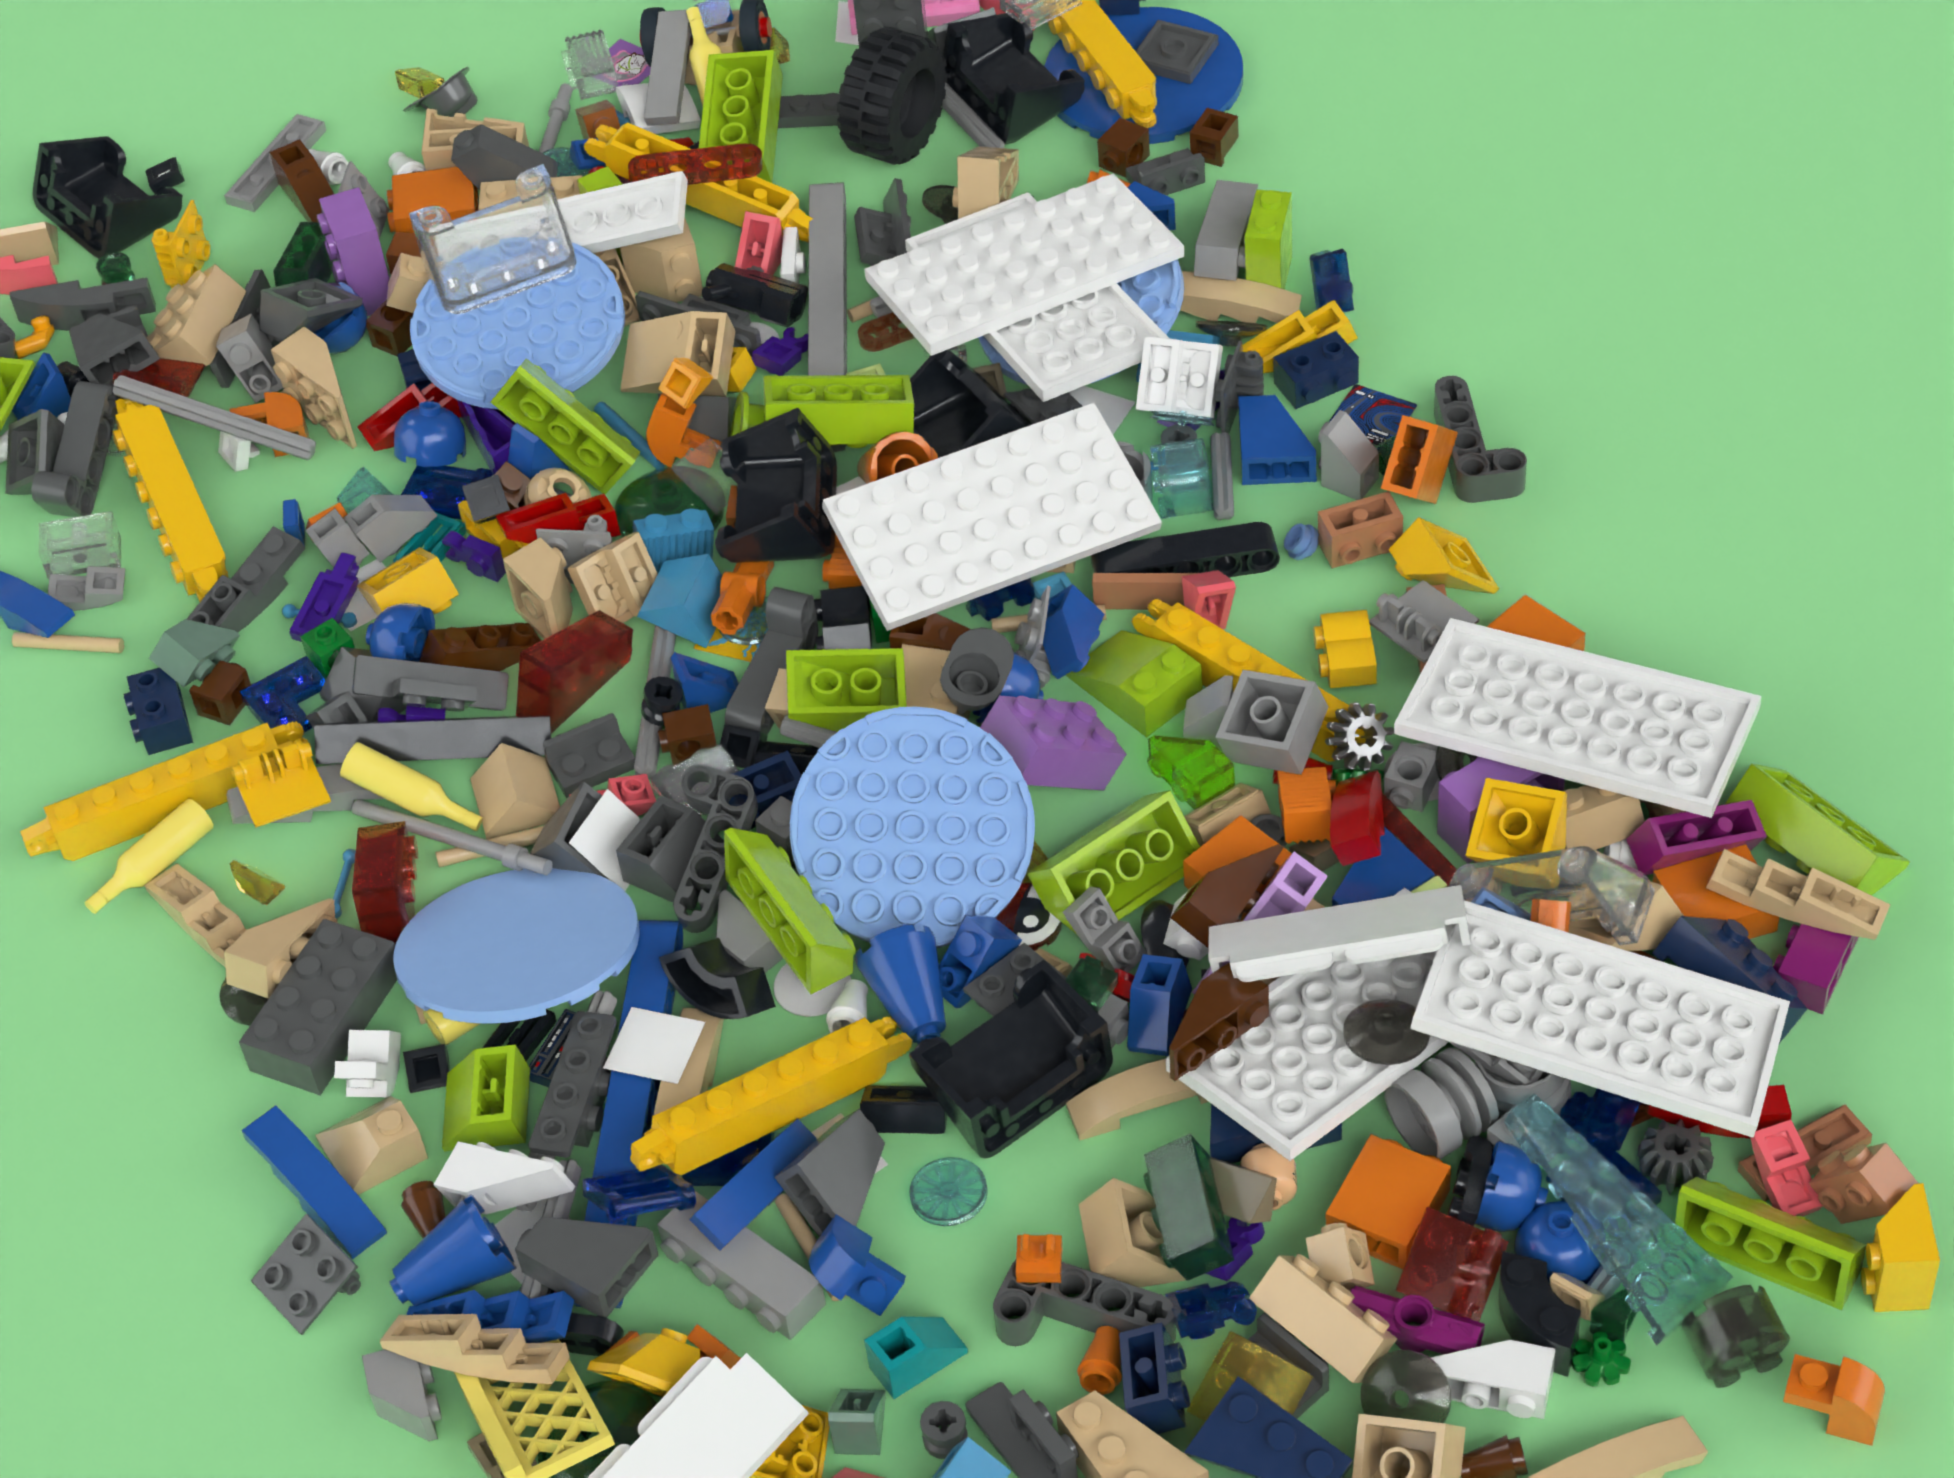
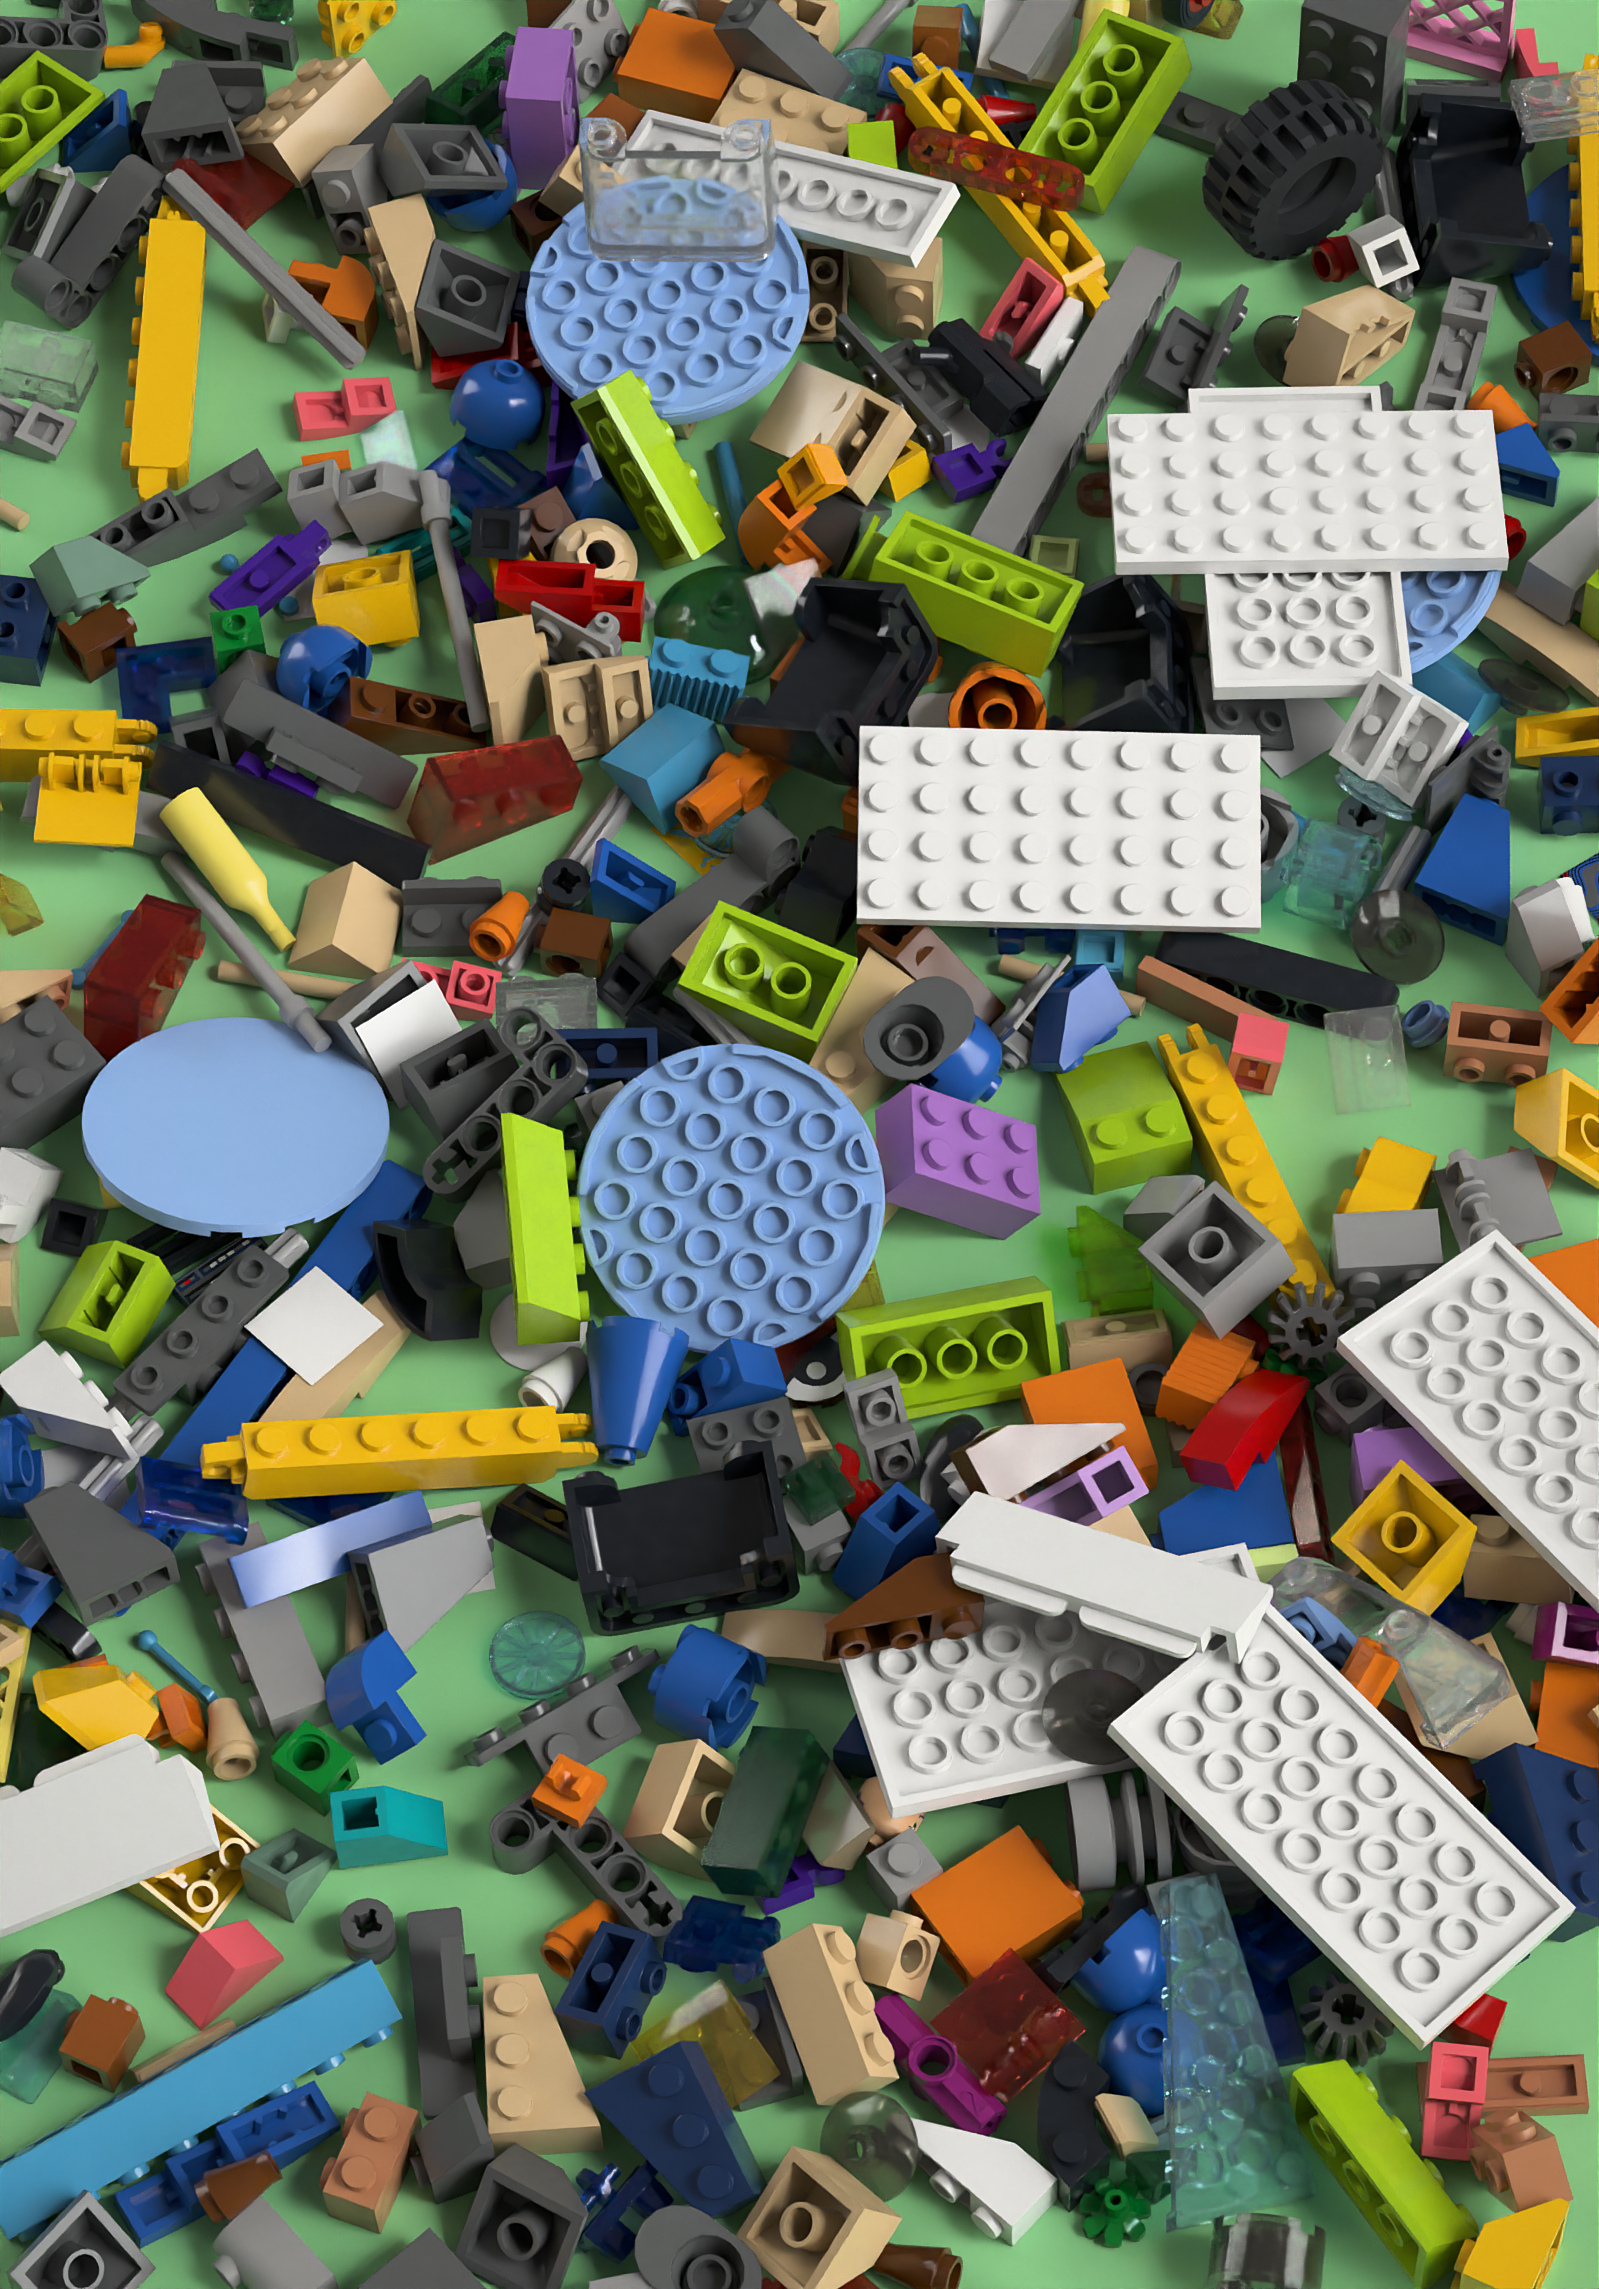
camera: 25 degrees right, 10 degrees up
(293, 520) = (288, 449): blue tile -> none
(321, 488) = (344, 411): none -> coral slope
(371, 384) = (464, 301): none -> dark grey slope
(433, 517) = (436, 520): none -> light grey bar
(630, 744) = (498, 929): none -> orange cone
(718, 1329) = (148, 1640): none -> dark azure hinge
(763, 1348) = (229, 1742): none -> tan cone
(837, 1353) = (313, 1787): none -> green brick
(945, 144) = (1334, 259): none -> red cone
(977, 123) = (1383, 251): none -> white brick
(1012, 1210) = (578, 1725): none -> dark grey bracket
(1053, 157) = (1457, 346): none -> light grey slope
(1090, 1147) = (707, 1688): none -> blue brick
(1249, 497) = (1411, 927): none -> clear smoke dish
(1279, 575) = (1367, 1059): none -> clear plate
(1306, 1204) = (901, 1869): none -> light grey brick
(1379, 673) = (1382, 1255): none -> light grey brick

